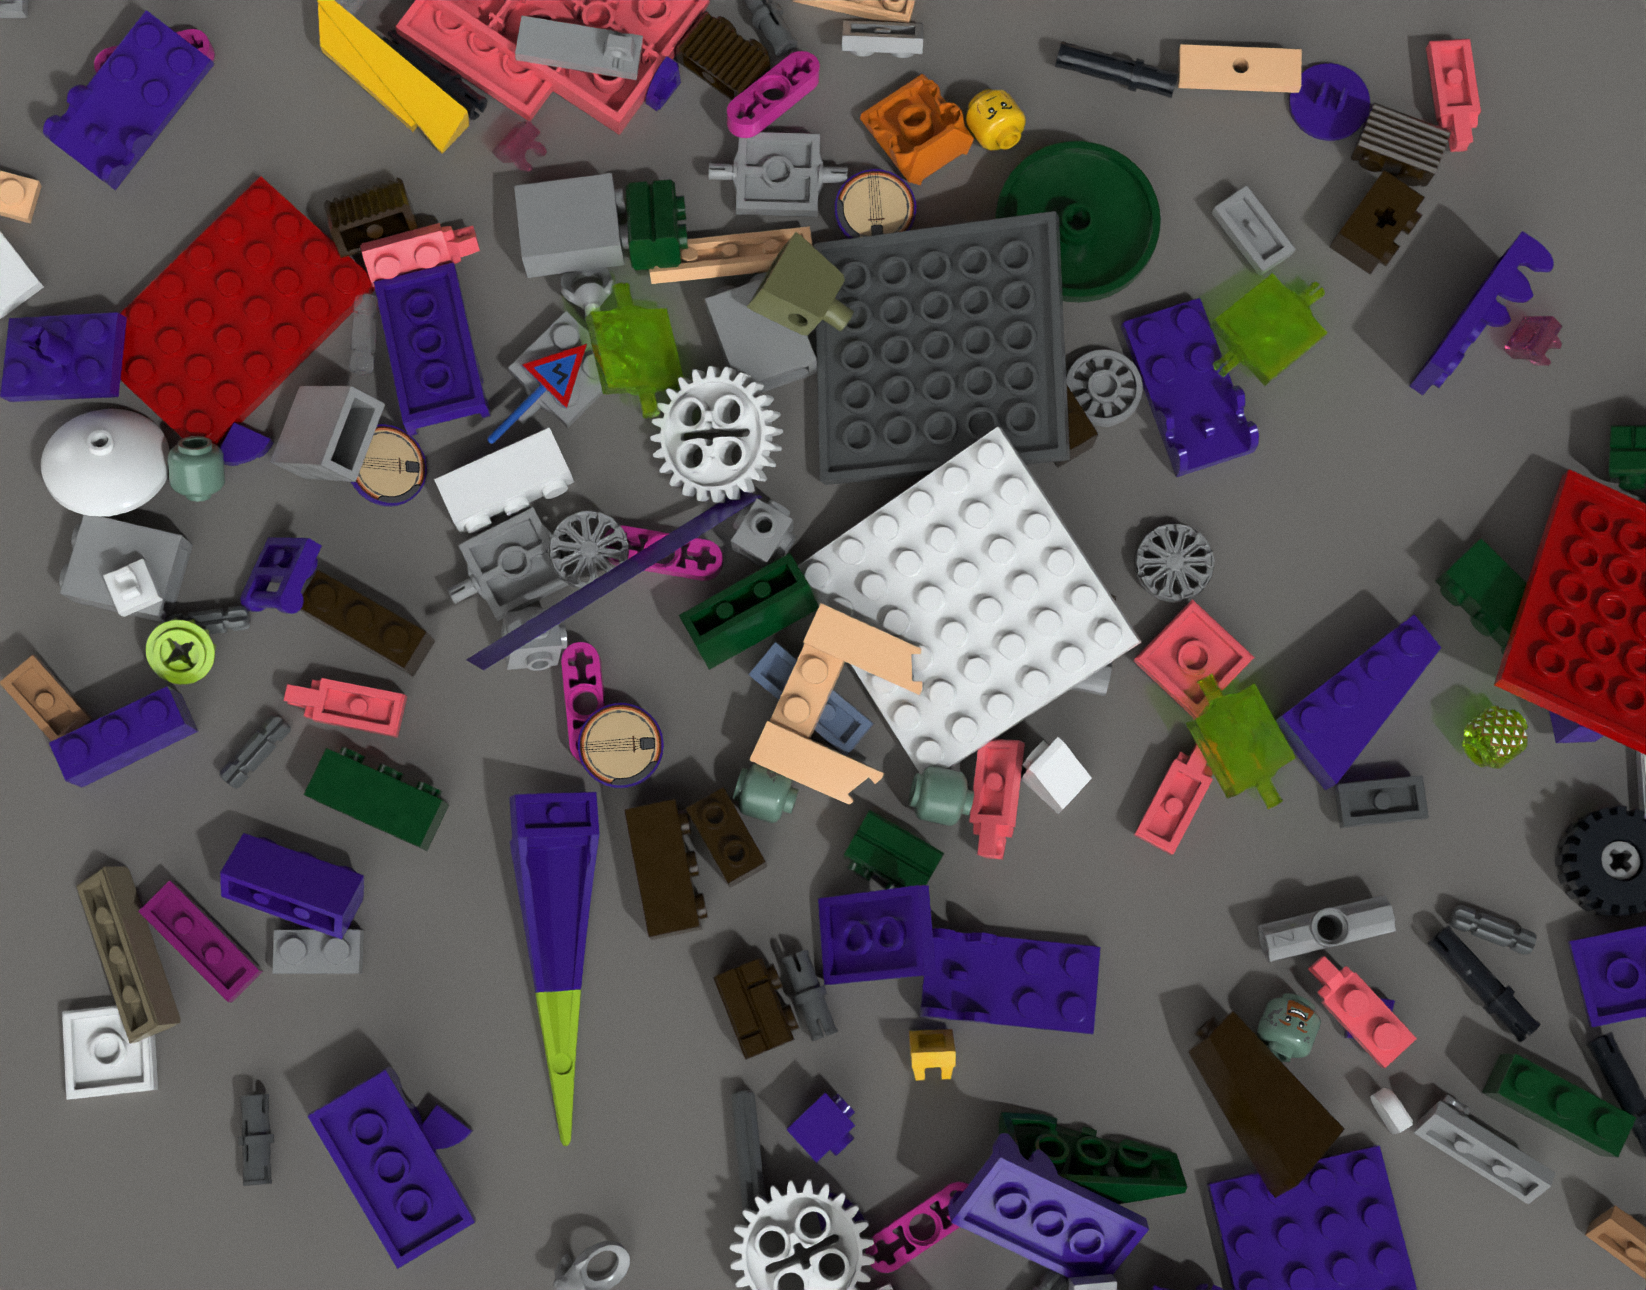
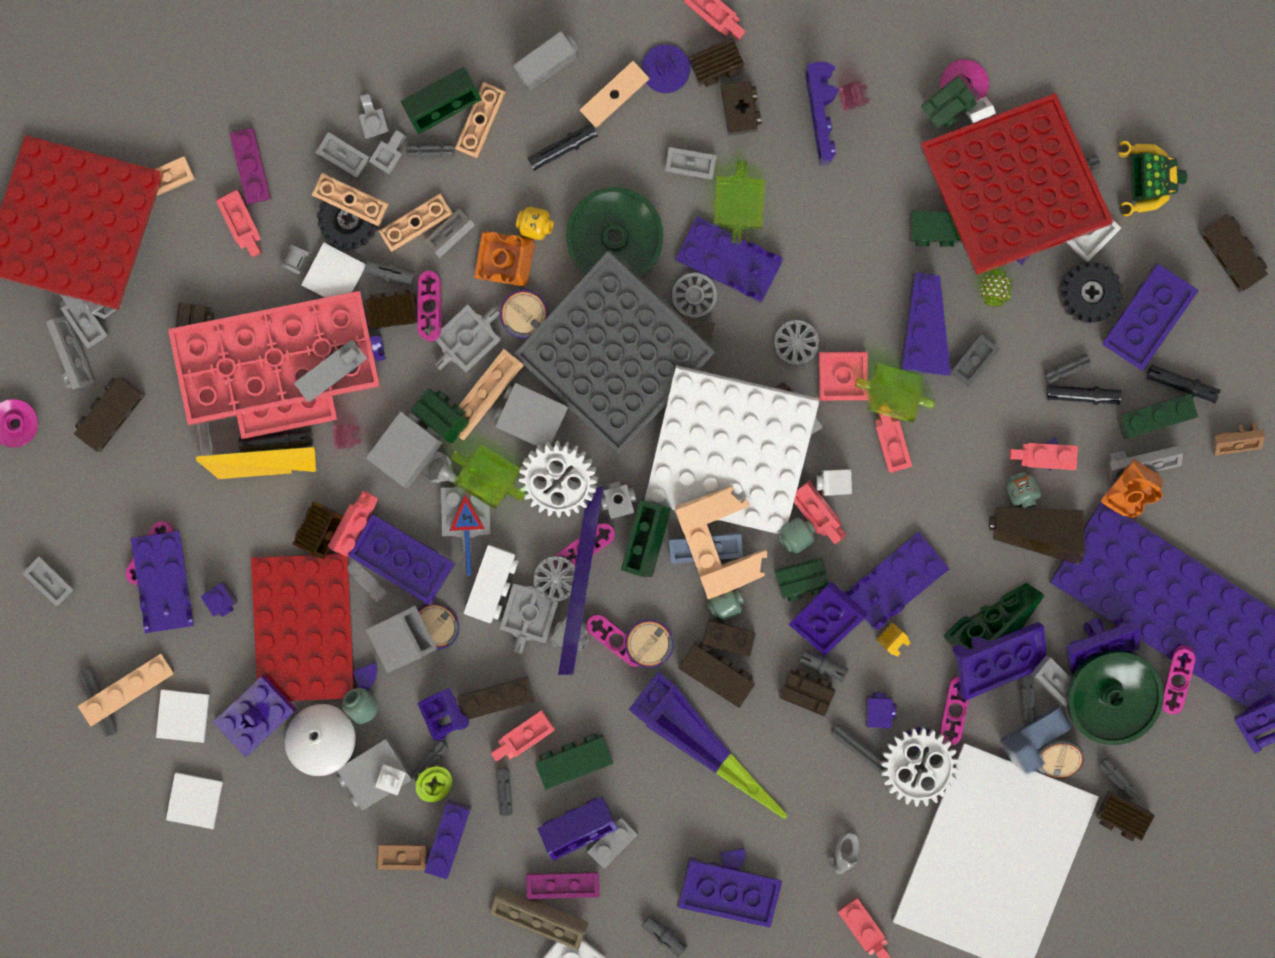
camera: 45 degrees left, 10 degrees up
(171, 183) = (219, 600): none -> dark purple brick
(801, 290) = (533, 385): olive torso -> none
(1351, 922) = (1010, 422): light grey piece -> none
(1391, 1111) = (1094, 483): white tile -> none
(1437, 1171) = (1134, 490): none -> orange slope

